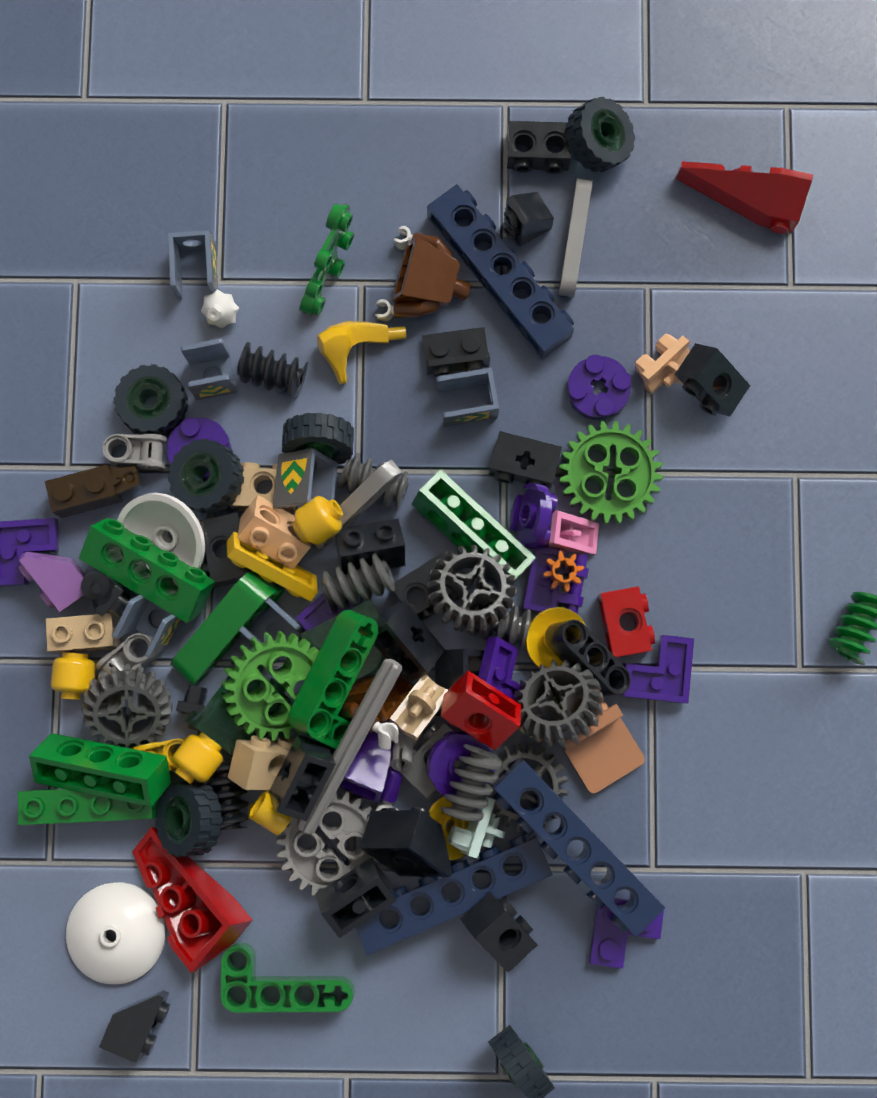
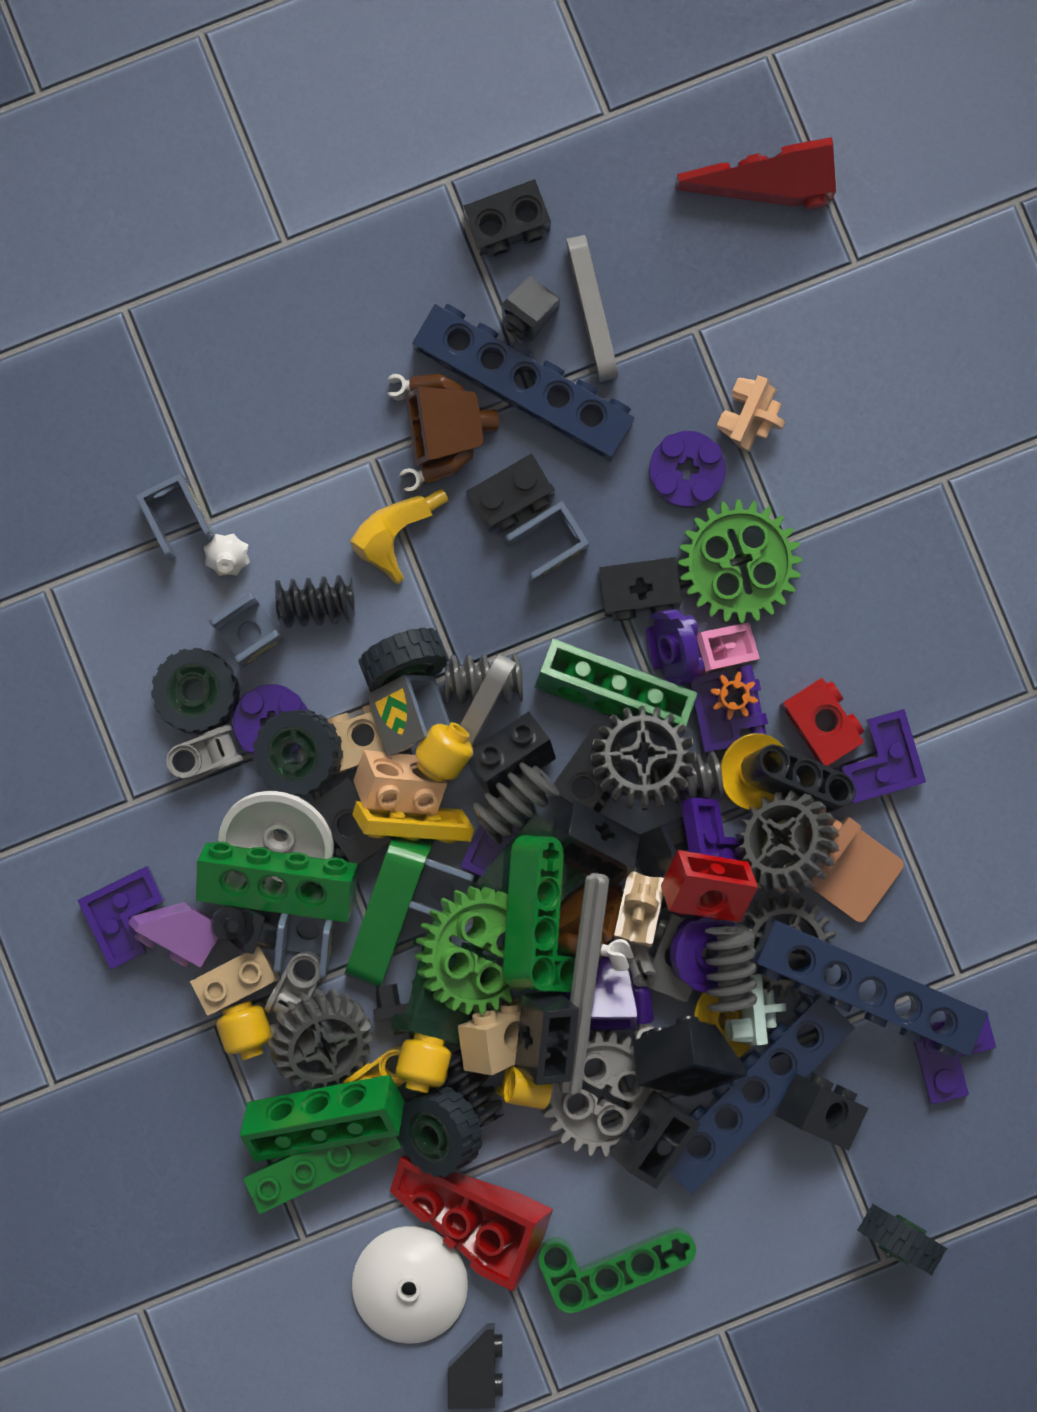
camera: 25 degrees left, 5 degrees up
(90, 489) = (173, 817): dark brown hinge -> none
(327, 258) = (329, 410): green plant -> none
(600, 134) = (572, 179): black wheel -> none
(712, 380) = (810, 414): black brick -> none

